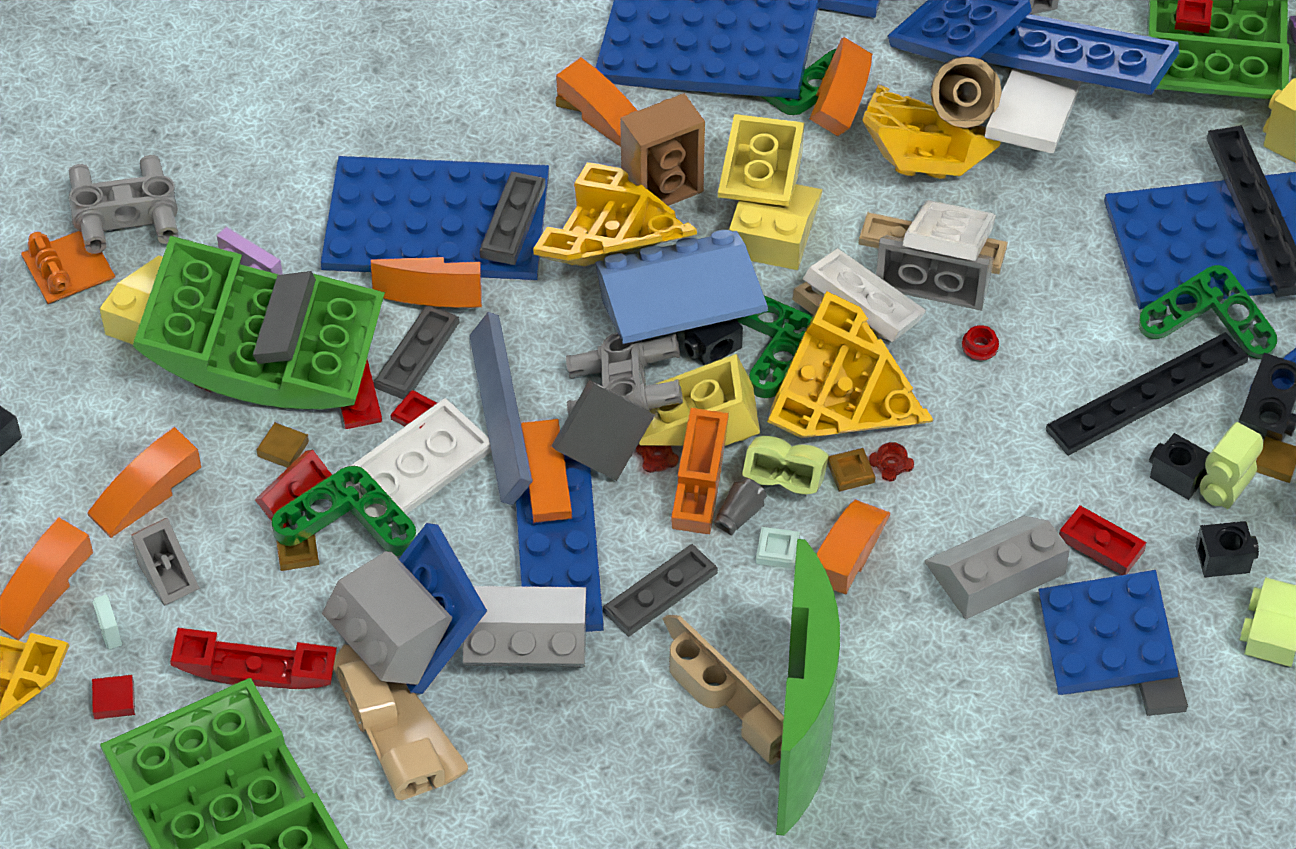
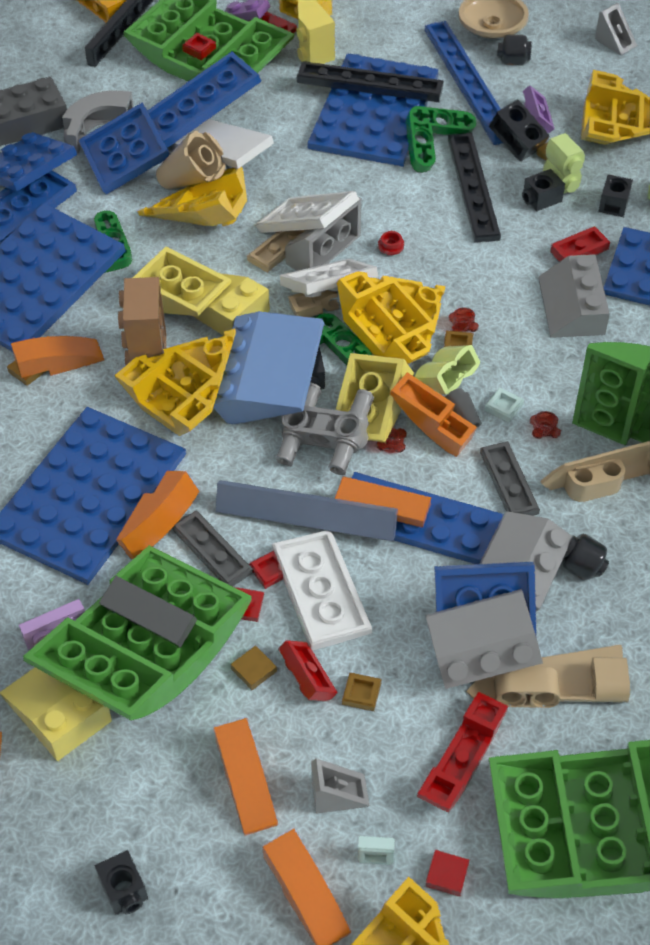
camera: 65 degrees left, 0 degrees up
(343, 501) = (342, 638): green beam -> none
(512, 218) = (131, 440): dark grey tile -> none
(574, 692) = (585, 557): none -> black head
(603, 430) = (374, 451): dark grey tile -> none
(765, 588) = (545, 418): none -> clear red plate
(842, 87) = (137, 224): orange slope -> none
(851, 543) = (528, 364): orange slope -> none

